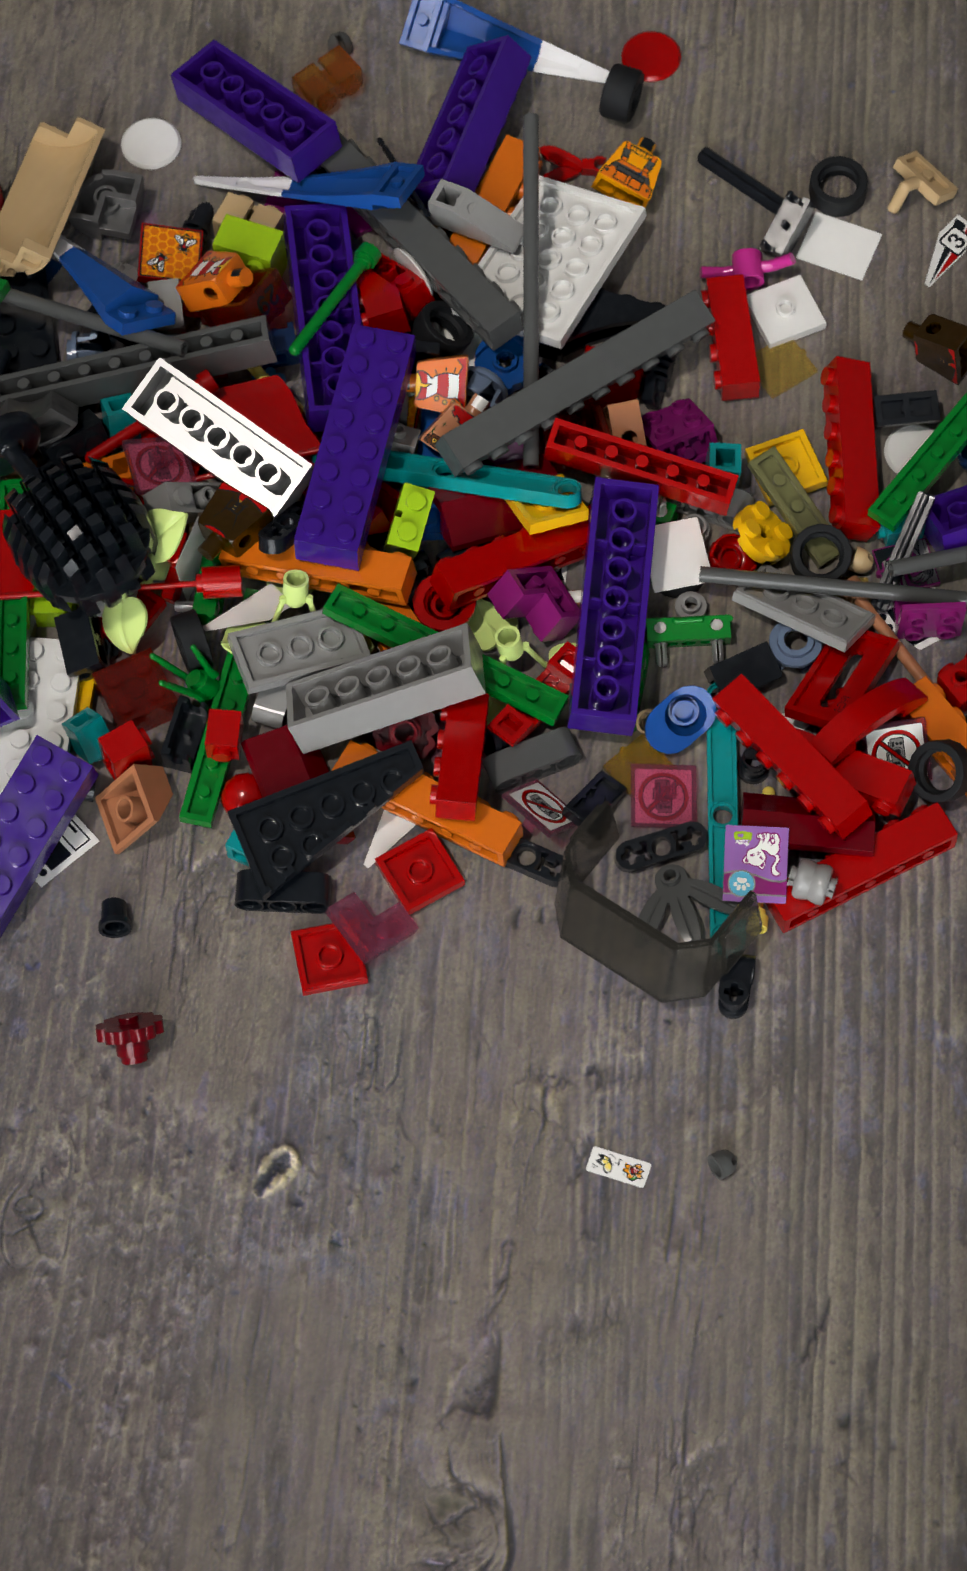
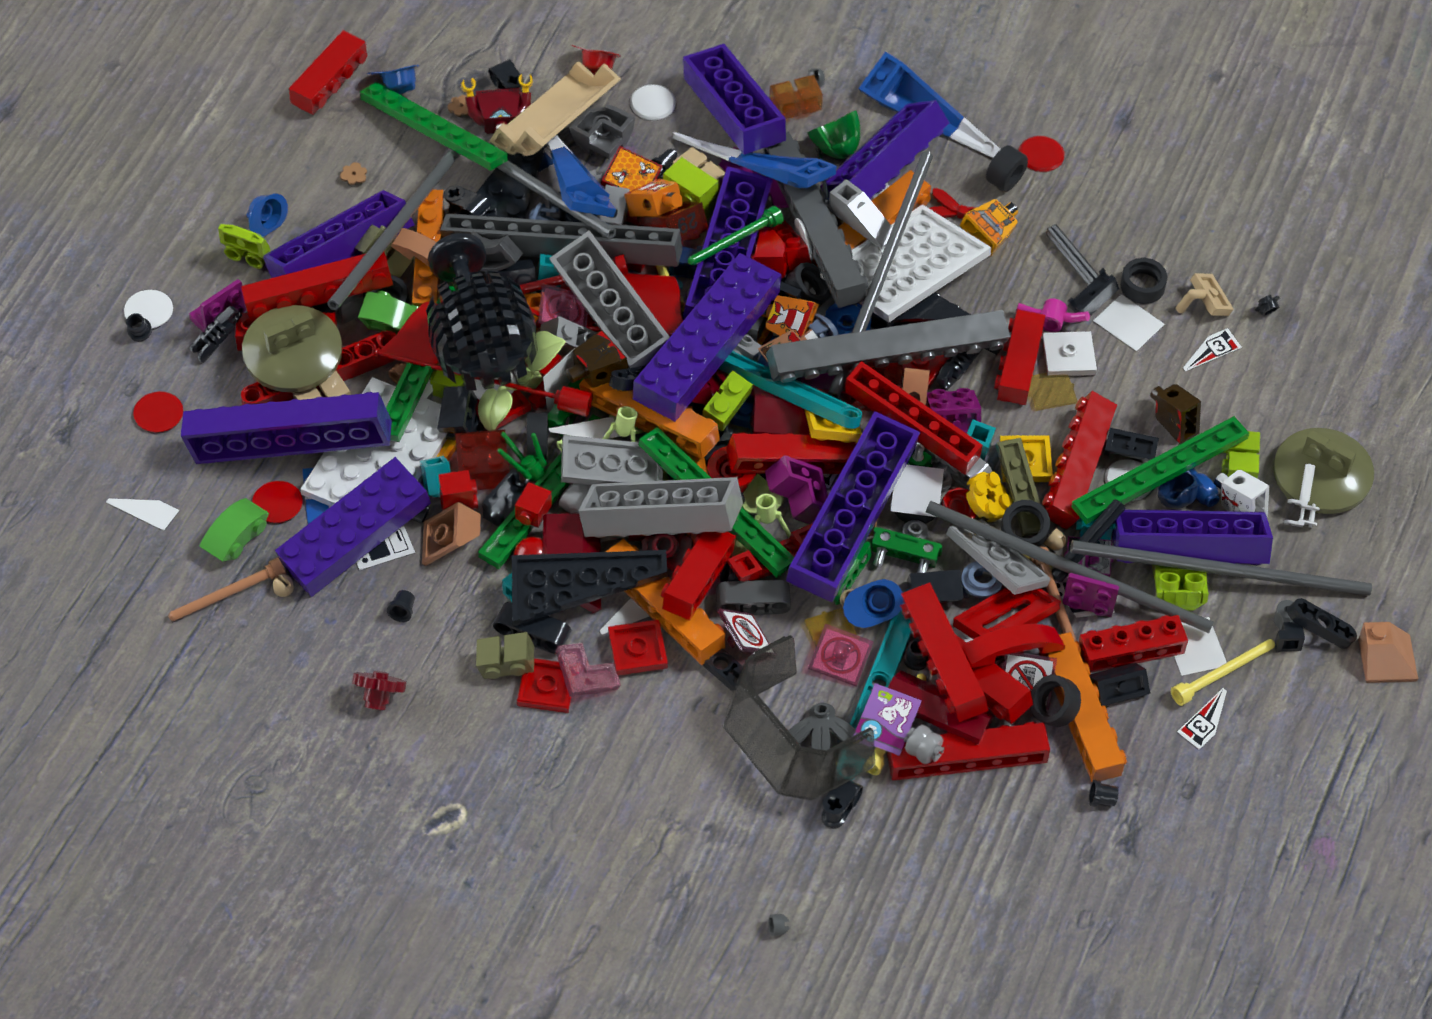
camera: 15 degrees right, 10 degrees down
(60, 112) = (595, 59): none -> red piece
(263, 946) = (512, 659): none -> olive piece
(401, 117) = (838, 138): none -> green hair
(597, 791) = (802, 637): black plate -> none
(618, 1167) = (700, 902): white sticker -> none
(686, 847) = (804, 695): black beam -> none

